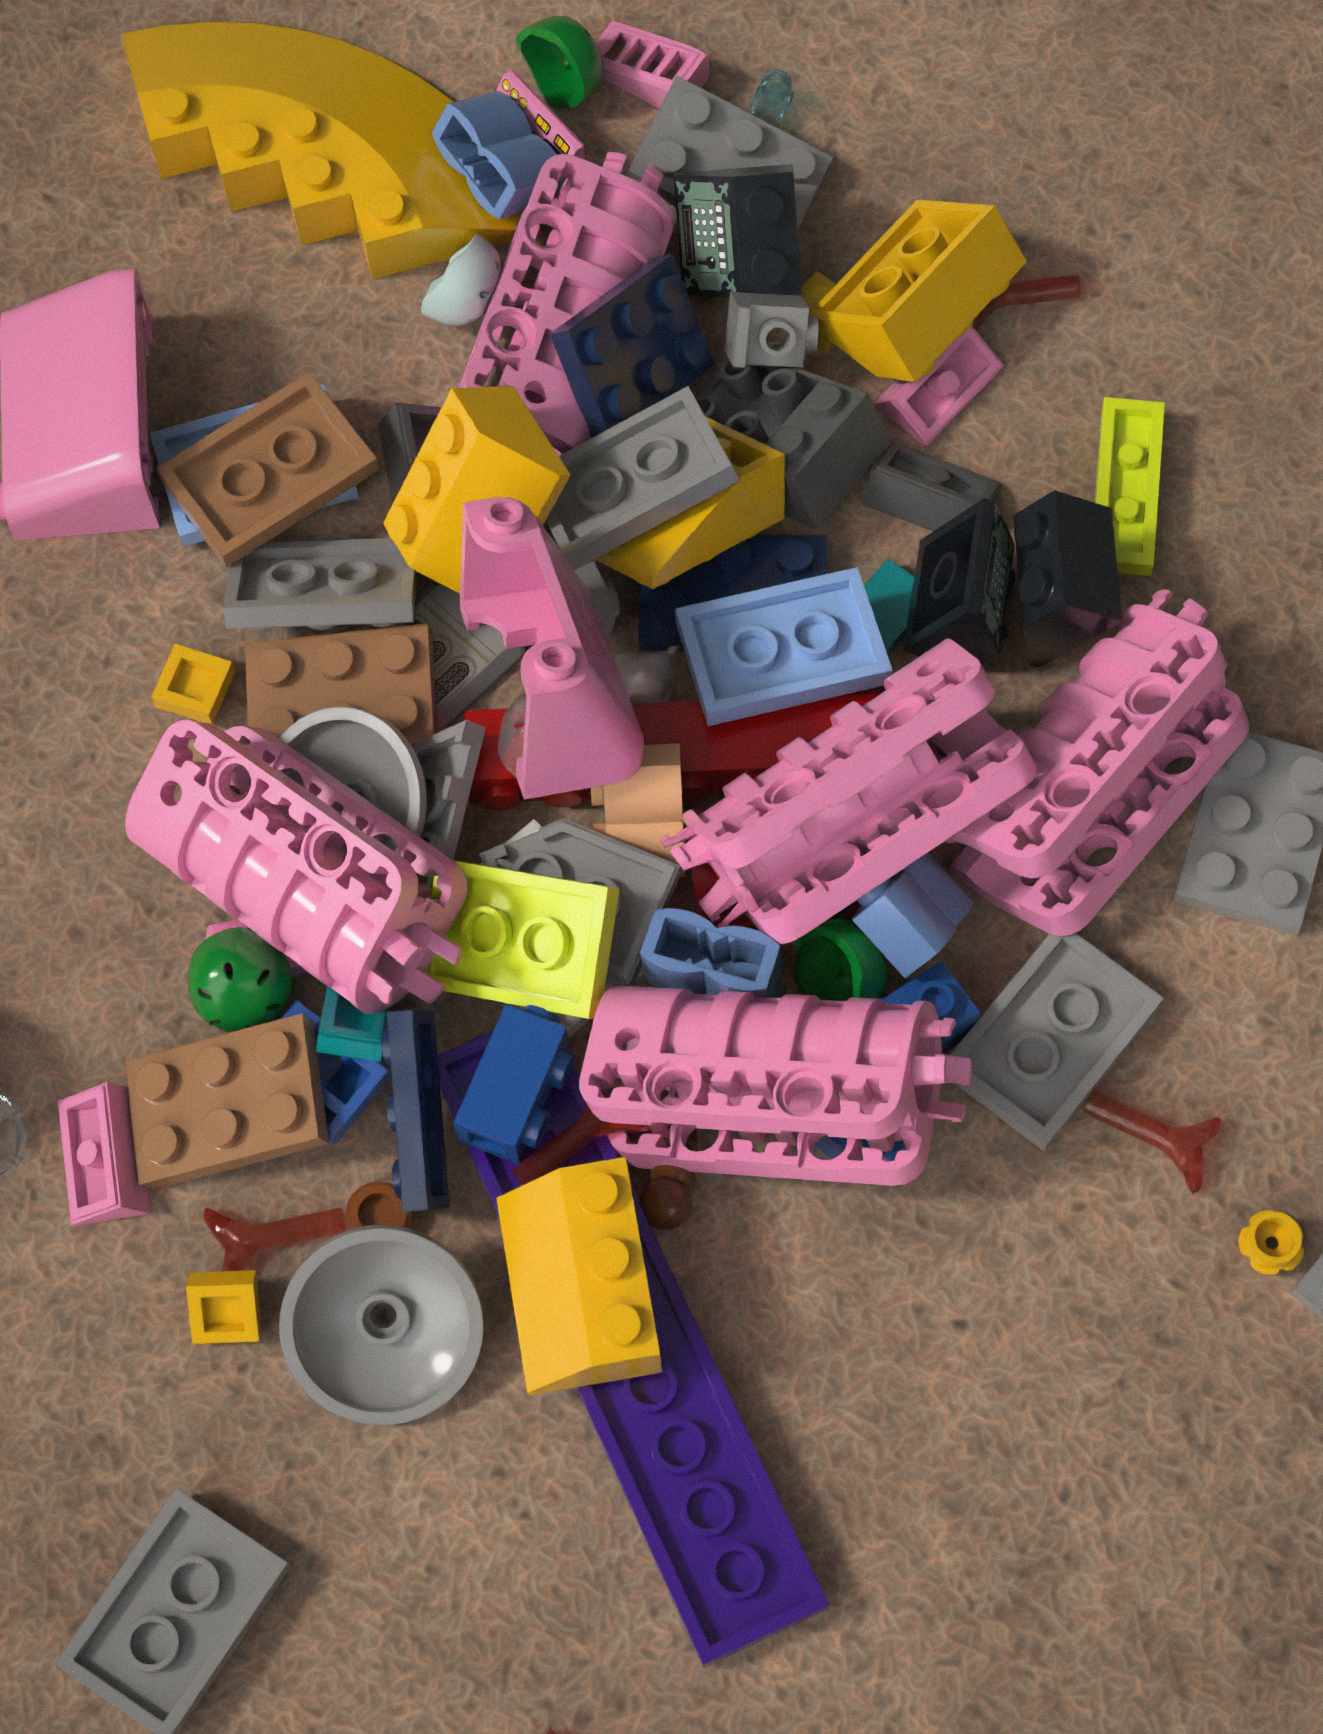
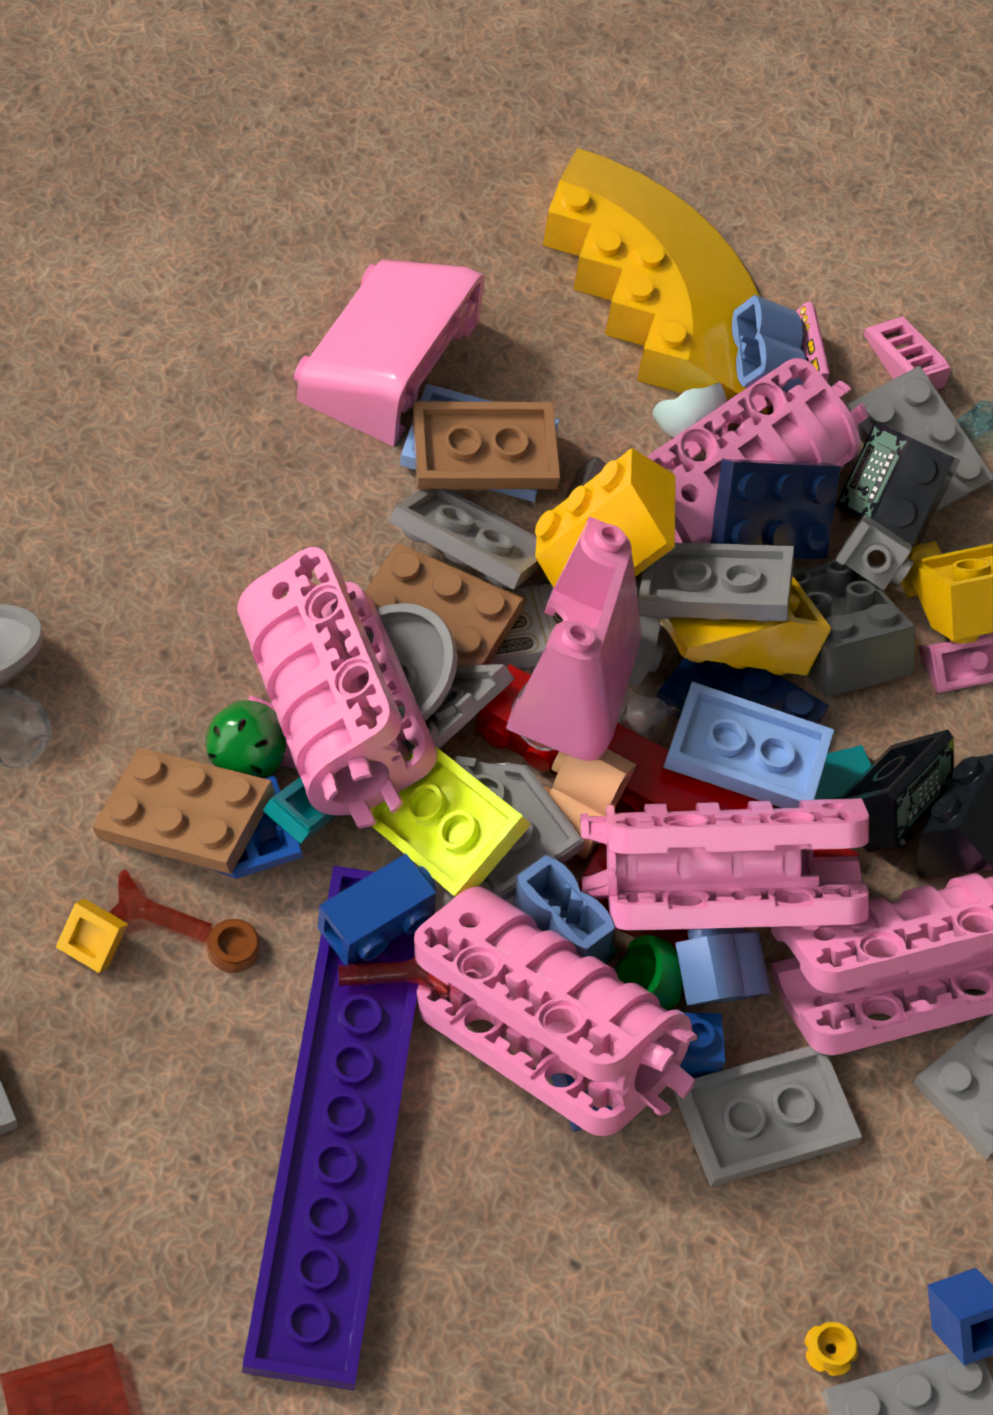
camera: 20 degrees right, 10 degrees down
(100, 1156) = (81, 796): bright pink slope -> none
(193, 684) = (349, 547): yellow plate -> none
(372, 1366) = (149, 1013): light grey dish -> none
(416, 1110) = (302, 889): dark blue plate -> none
(561, 60) = (851, 317): green helmet -> none
(578, 1278) = (335, 1061): yellow slope -> none
(668, 1195) = (430, 1052): reddish brown bar -> none
(924, 487) = (913, 713): dark grey slope -> none
(1180, 1144) = (809, 1242): clear red piece -> none

